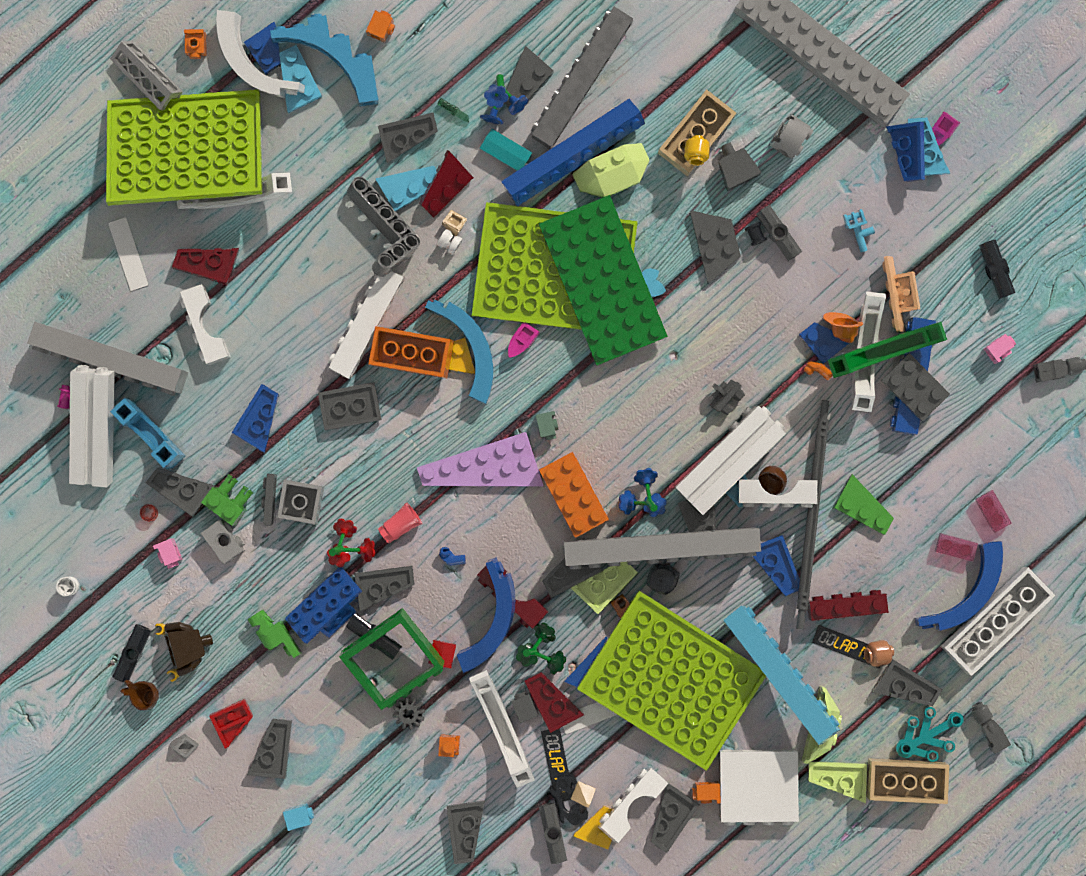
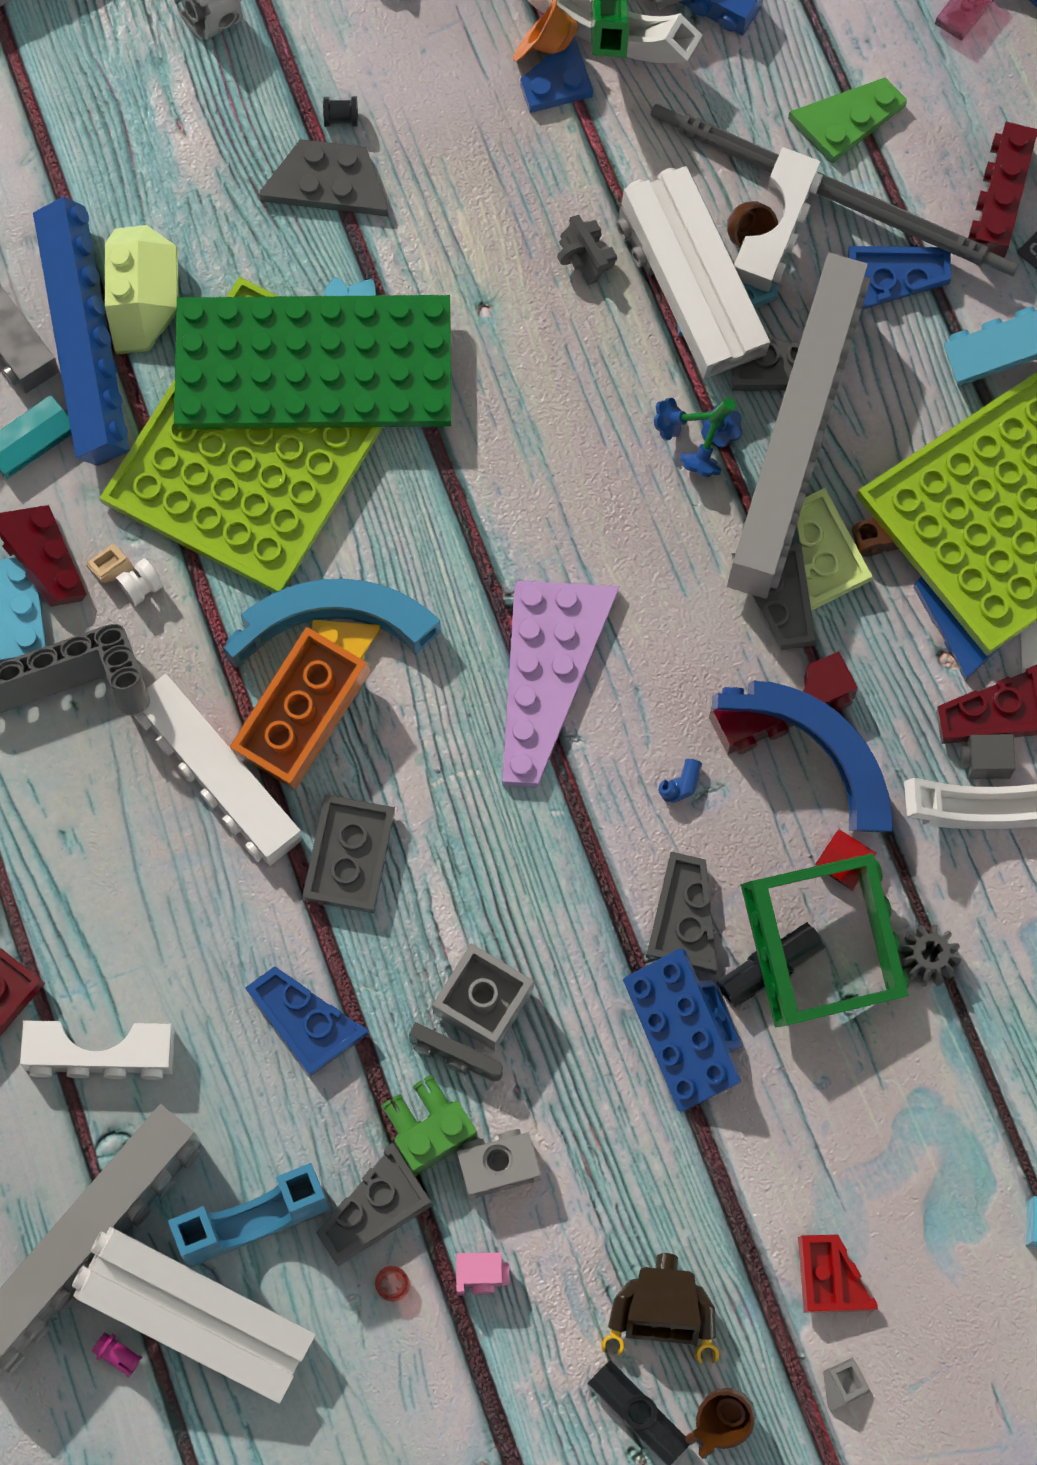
camera: 70 degrees left, 15 degrees down
(274, 635) = (702, 1138): bright green plate -> none
(274, 751) = (913, 1221): dark grey wing -> none
(339, 554) = (603, 972): red plant -> none
(400, 523) = (589, 843): coral plant -> none
(449, 745) = (1011, 909): orange brick -> none
(522, 339) = (356, 527): dark pink plate -> none
(528, 653) = (898, 719): dark green plant -> none
(547, 425) = (518, 542): sand green brick -> none
(573, 494) = (654, 541): orange brick -> none
(663, 578) = (850, 454): black helmet -> none
(697, 150) = (166, 130): yellow head -> none
(706, 118) = (138, 134): tan brick -> none
(736, 167) = (219, 99): dark grey torso -> none
(771, 222) = (335, 80): dark grey piece -> none
(818, 367) = (596, 98): orange arm -> none

